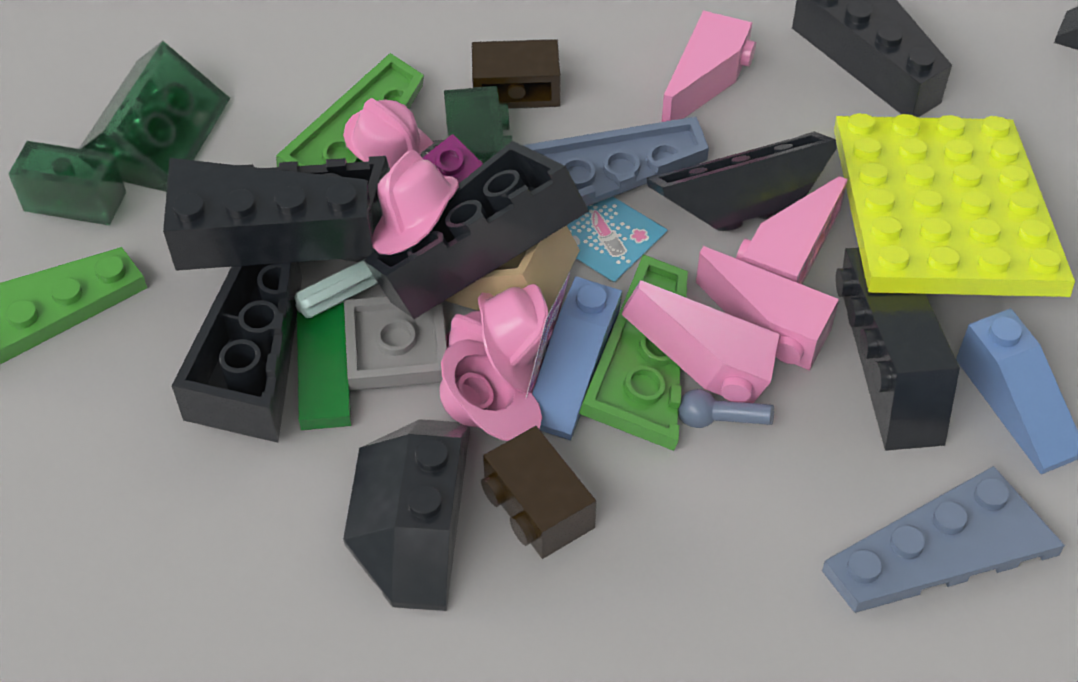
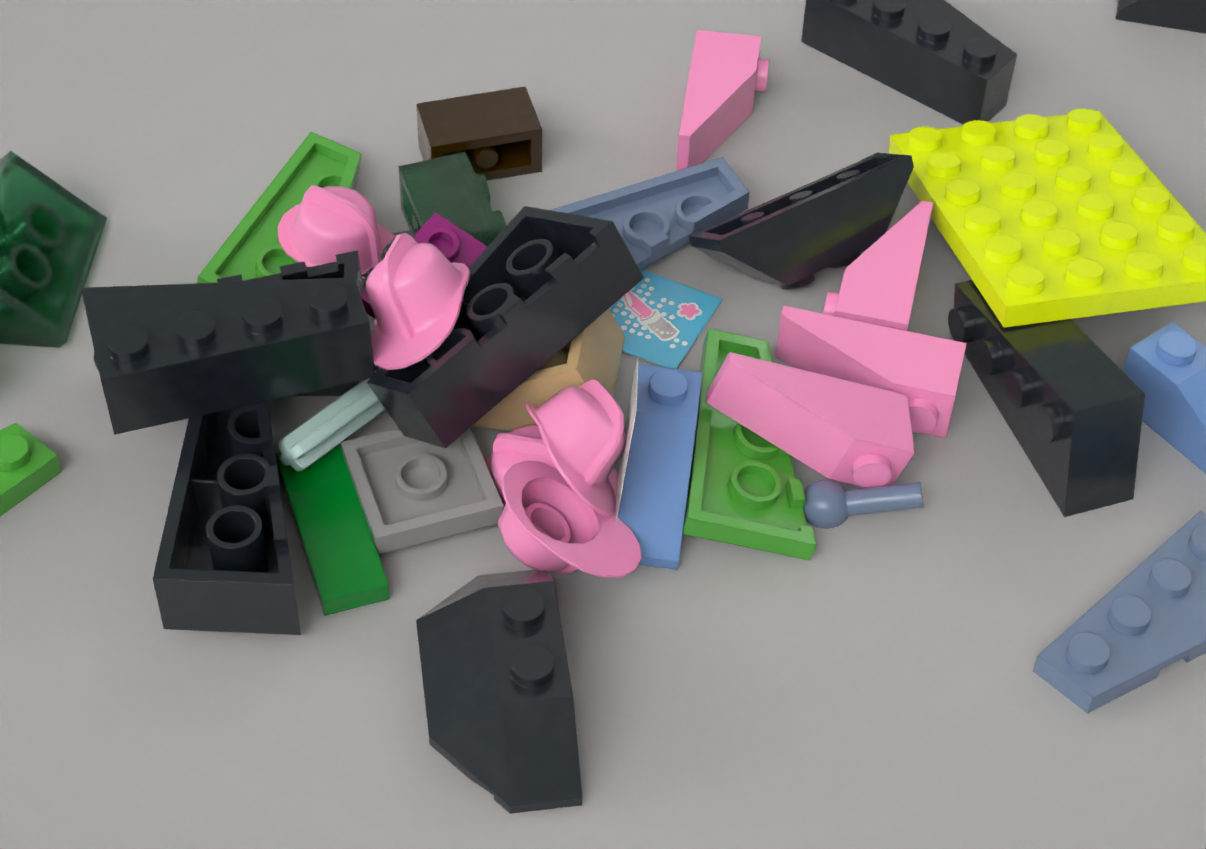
camera: 15 degrees left, 5 degrees down
(538, 492) = (662, 635): dark brown brick -> none

